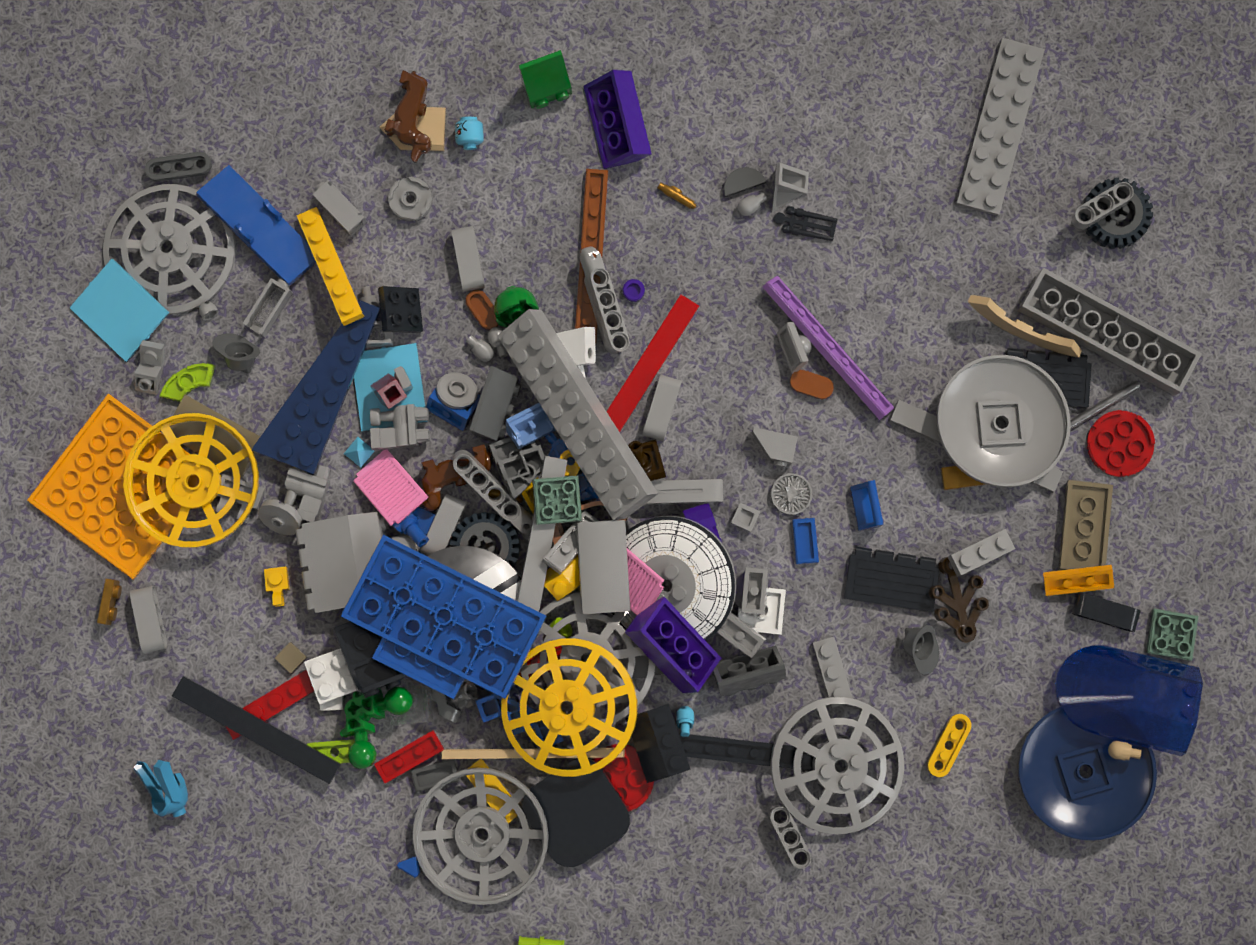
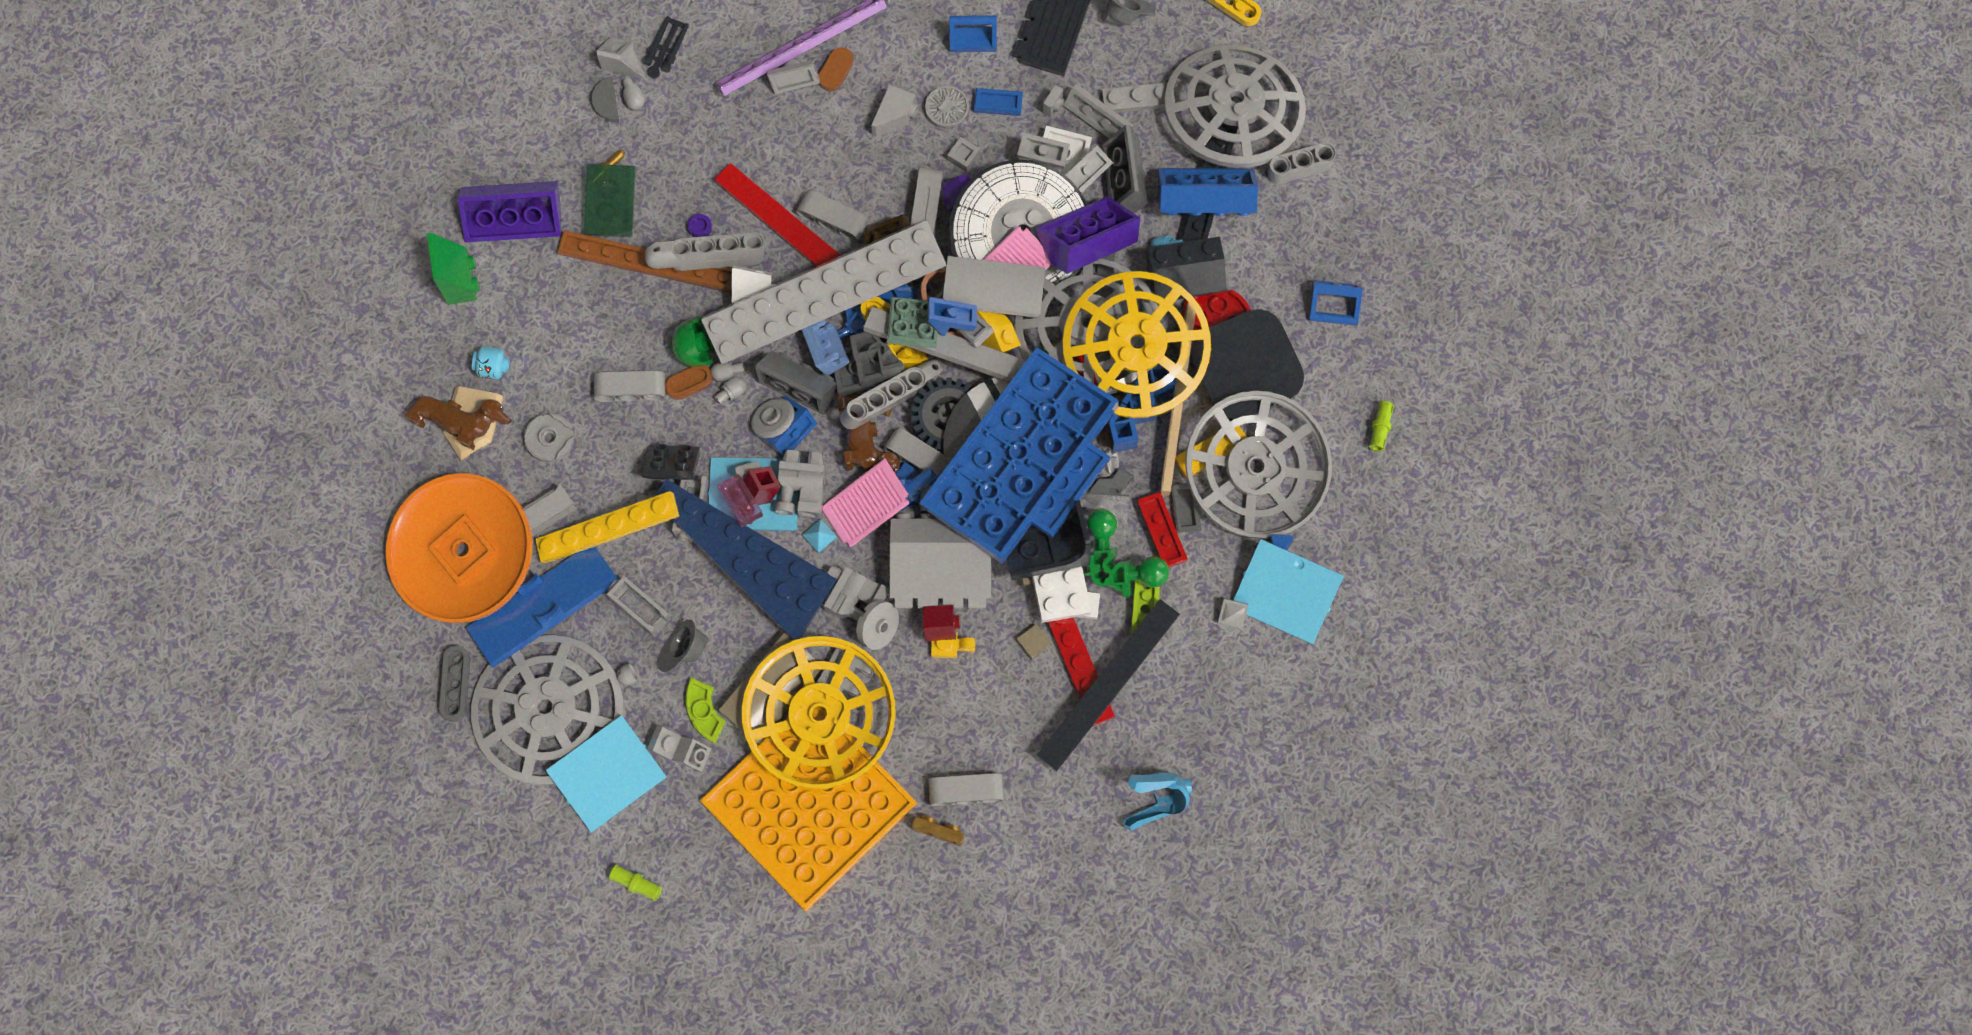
camera: 85 degrees left, 10 degrees down
(30, 353) = (635, 883): none -> lime pin
(273, 123) = (426, 540): none -> orange dish
(288, 572) = (940, 622): none -> dark red brick
(342, 831) = (1233, 613): none -> light grey tile
(367, 878) = (1288, 591): none -> medium azure piece
(368, 376) = (740, 500): none -> clear pink tile
(564, 533) = (947, 314): none -> blue slope
(642, 204) = (609, 200): none -> clear green tile
(667, 887) = (1340, 289): none -> blue tile
(742, 751) = (1207, 191): none -> blue slope
(806, 636) = (1094, 112): none -> light grey plate
(811, 593) = (1053, 102): none -> light grey plate

